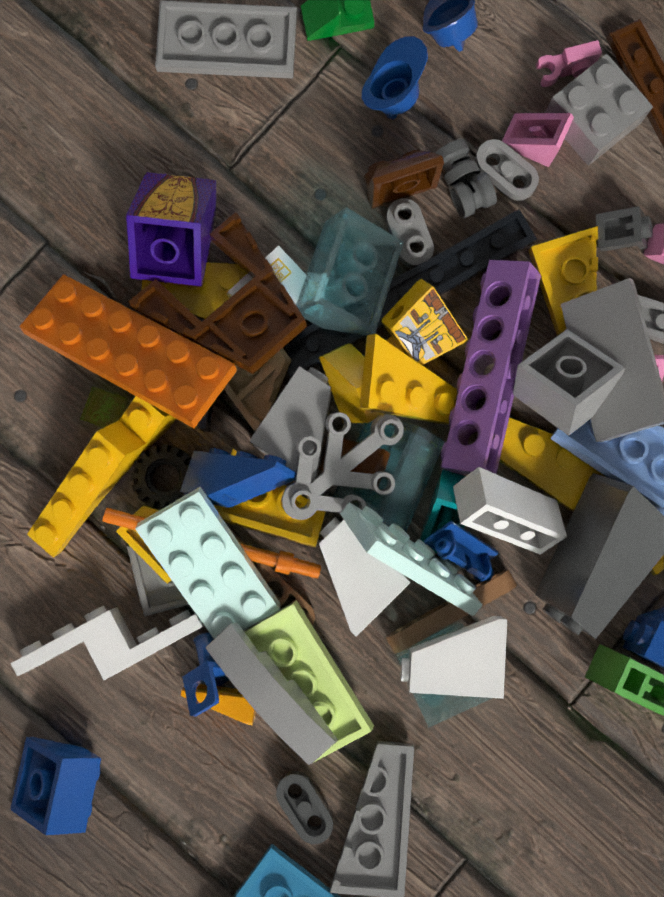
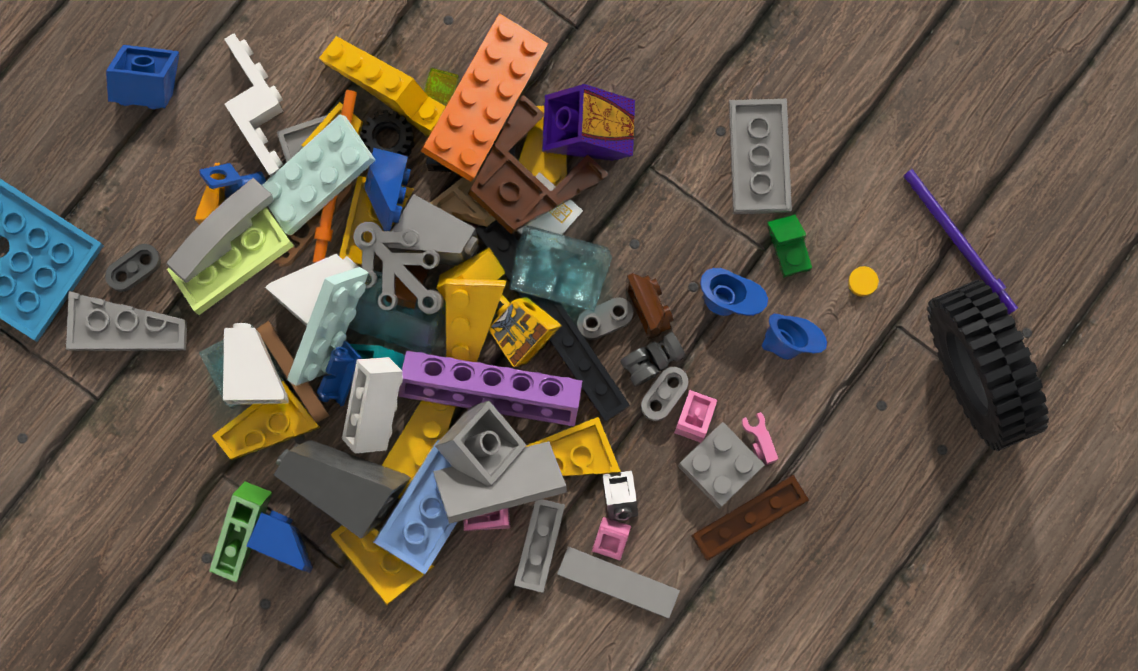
camera: 85 degrees right, 5 degrees down
(525, 664) = (264, 426): none -> yellow wing

